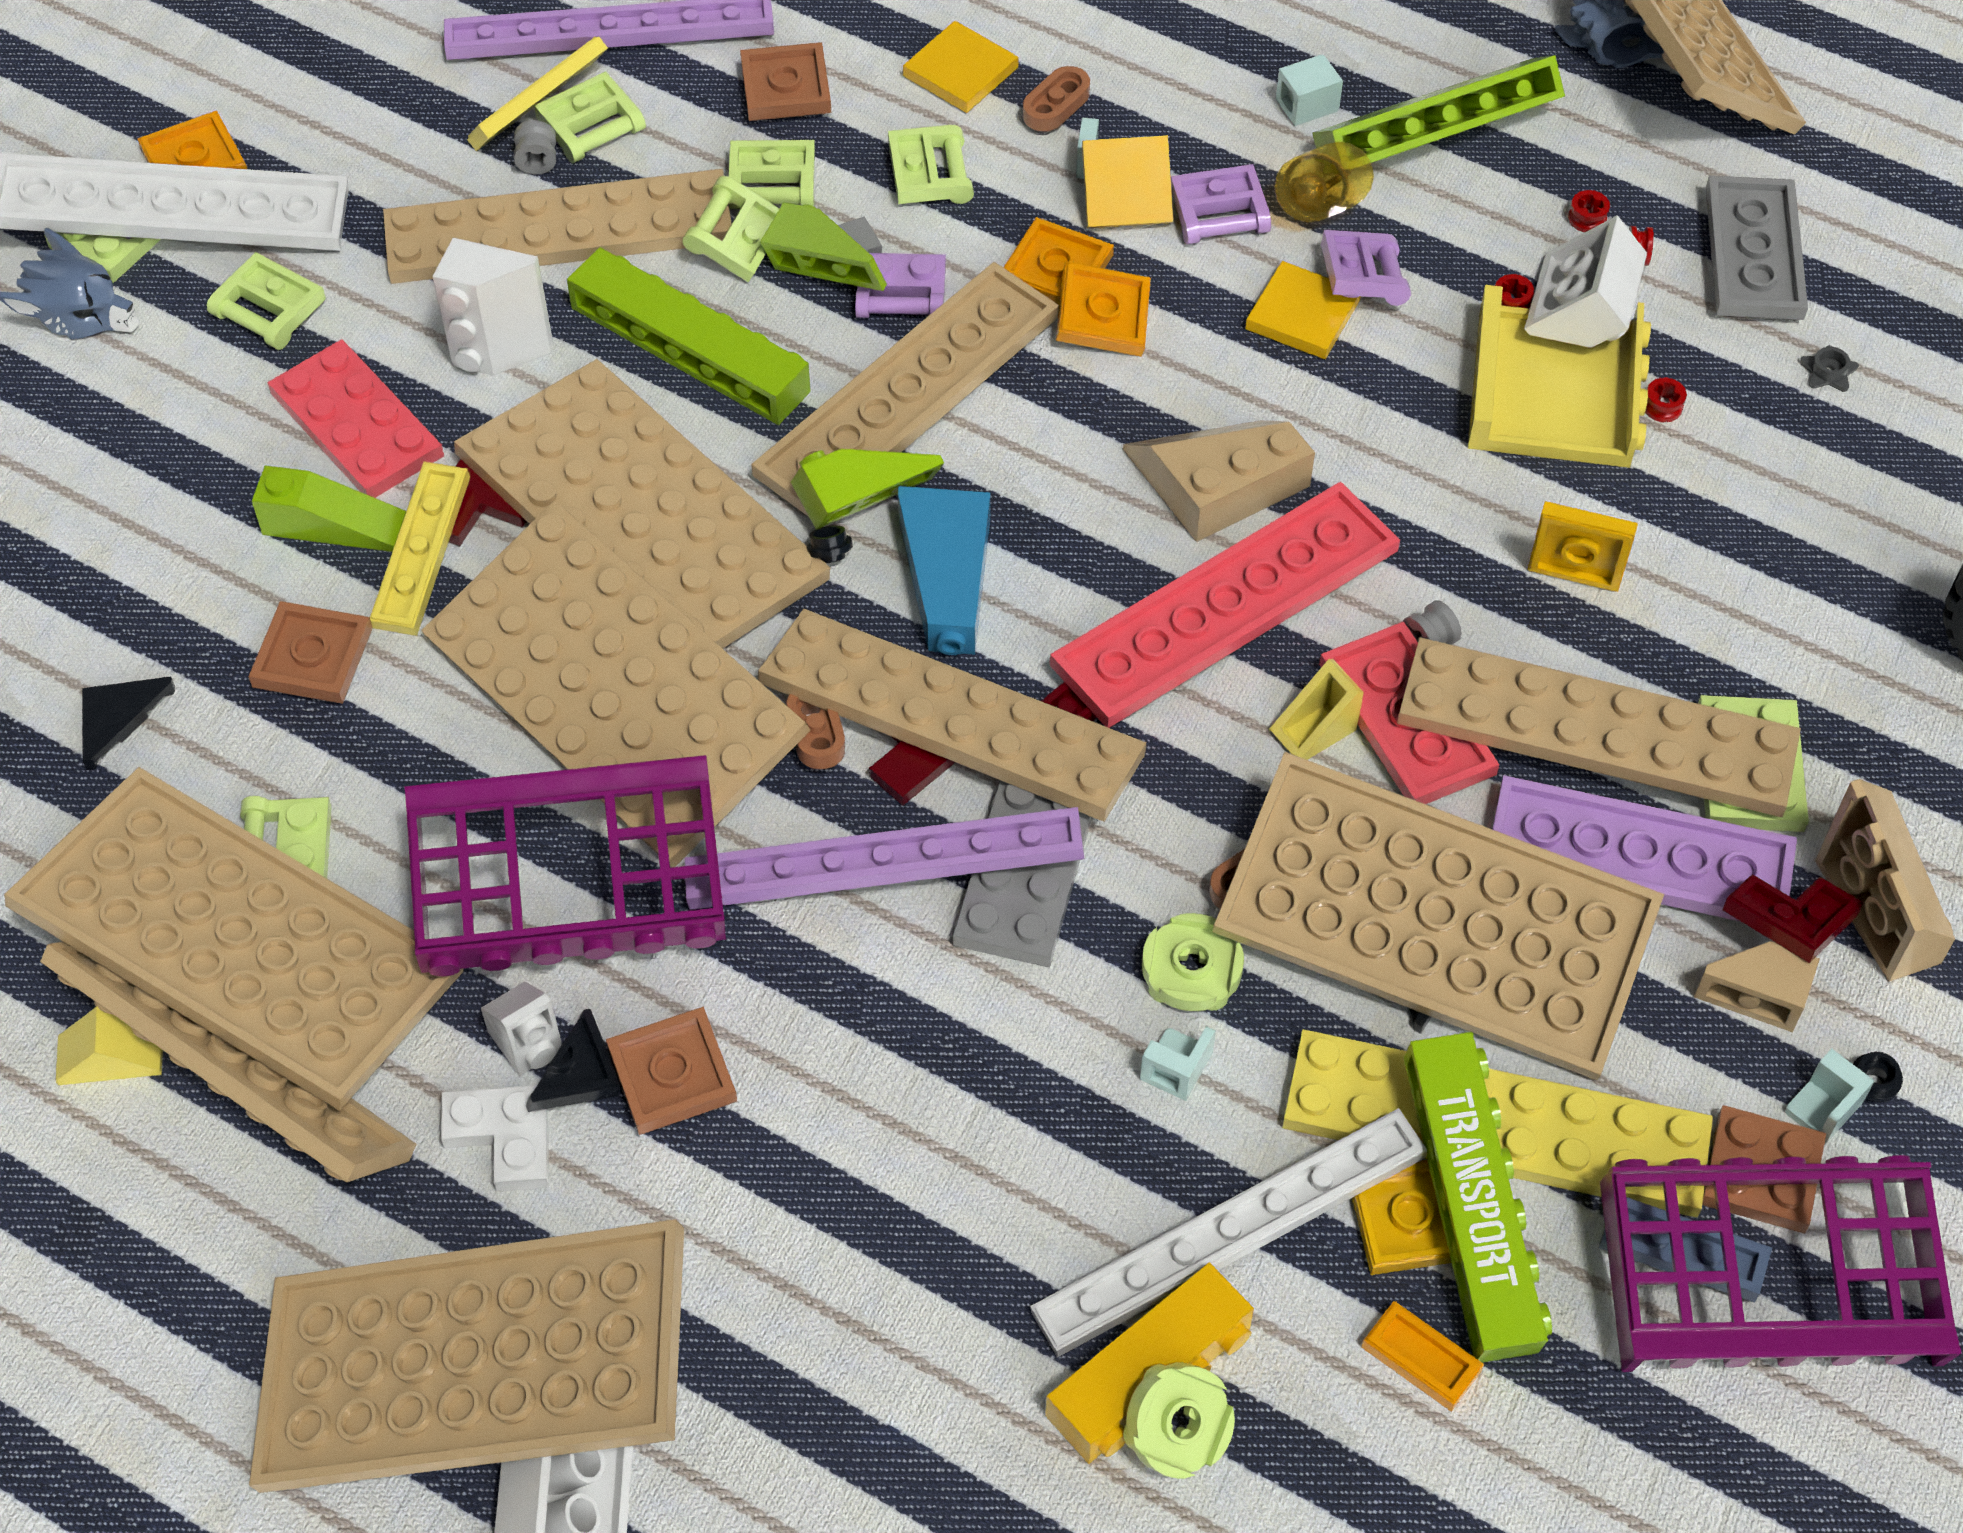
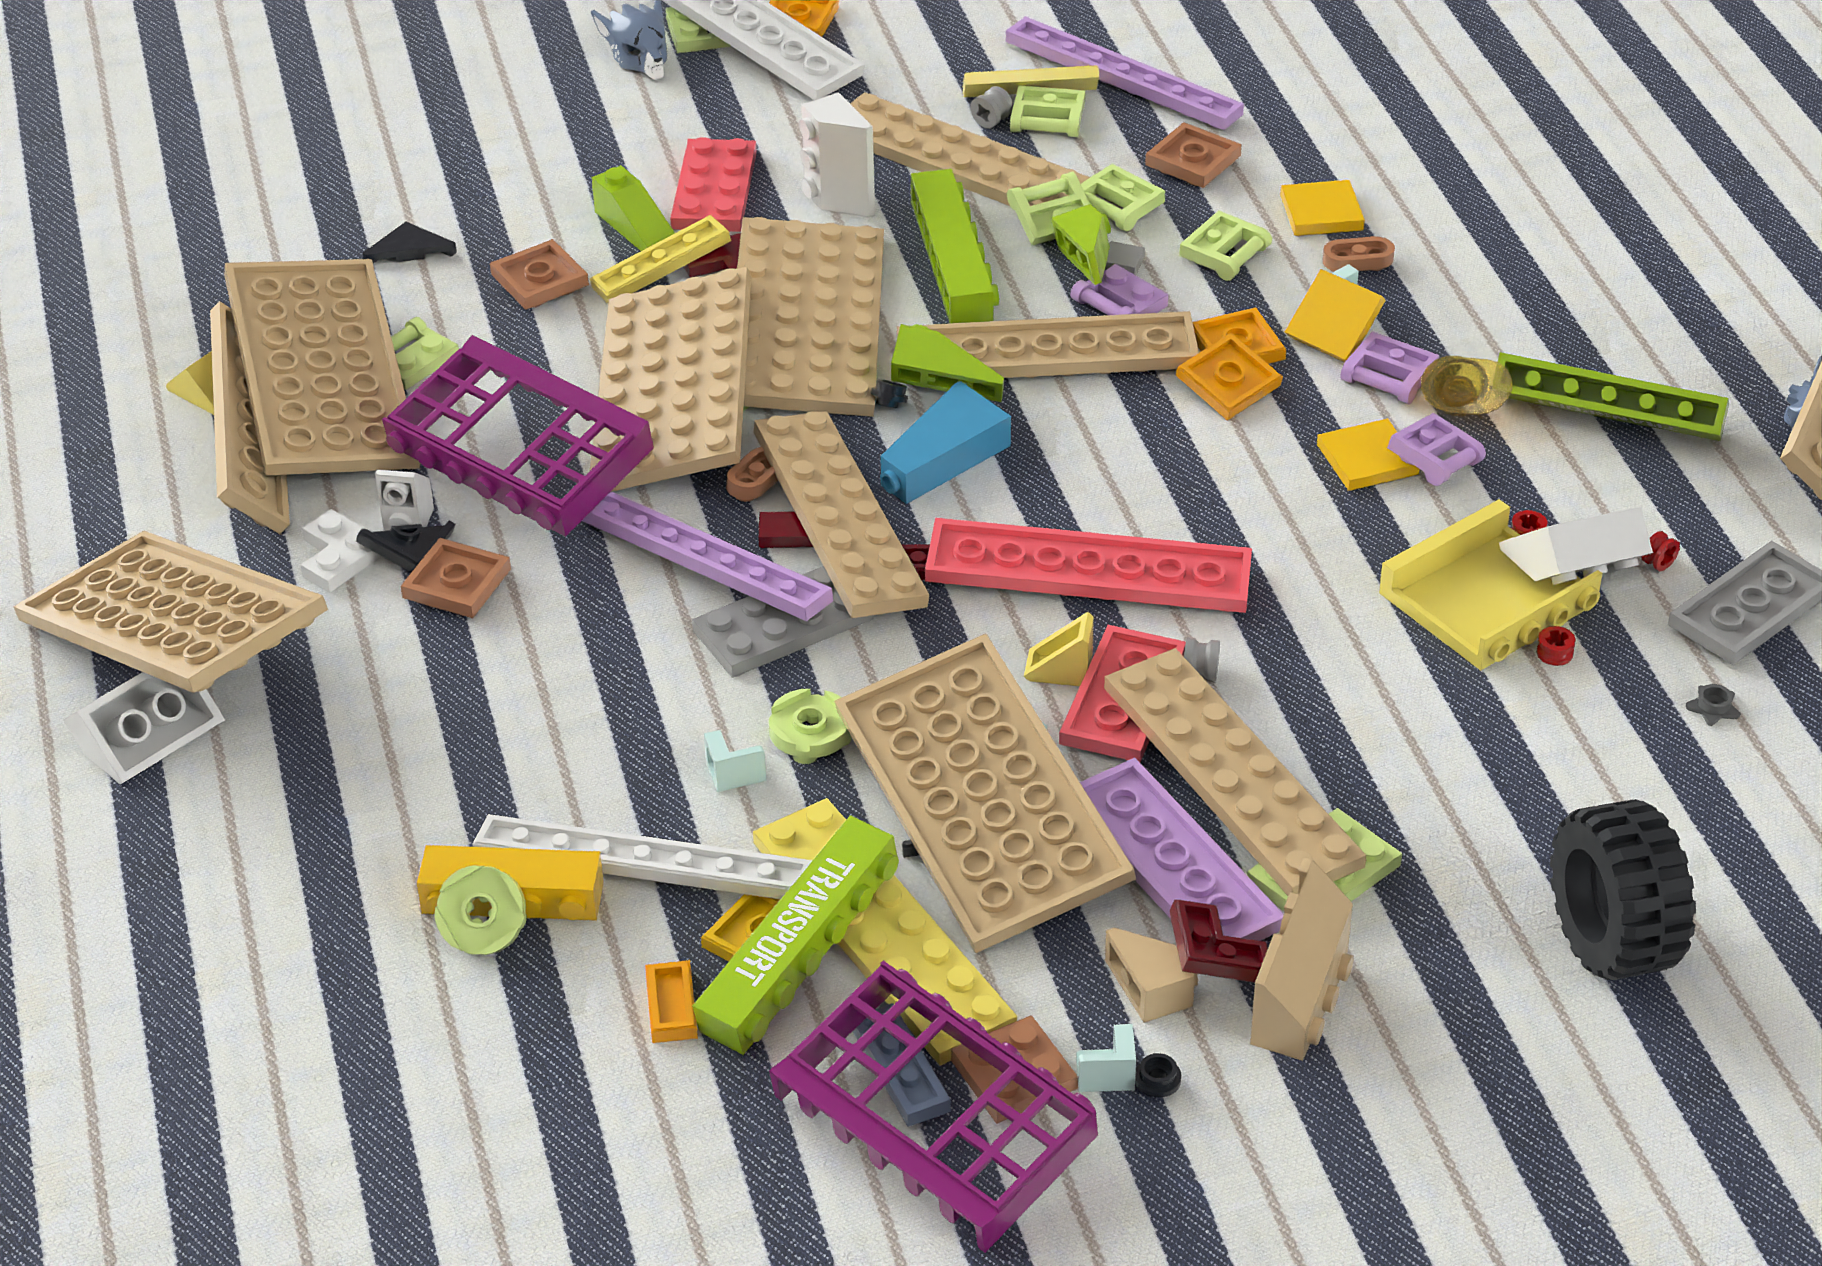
camera: 45 degrees right, 15 degrees down
(271, 288) = (751, 96): yellowish green plate -> none
(1224, 471) = (1185, 503): tan wedge -> none
(1309, 89) = (1540, 336): light aqua panel -> none
(1582, 546) = (1357, 670): yellow tile -> none
(1588, 200) = (1657, 514): red bush -> none

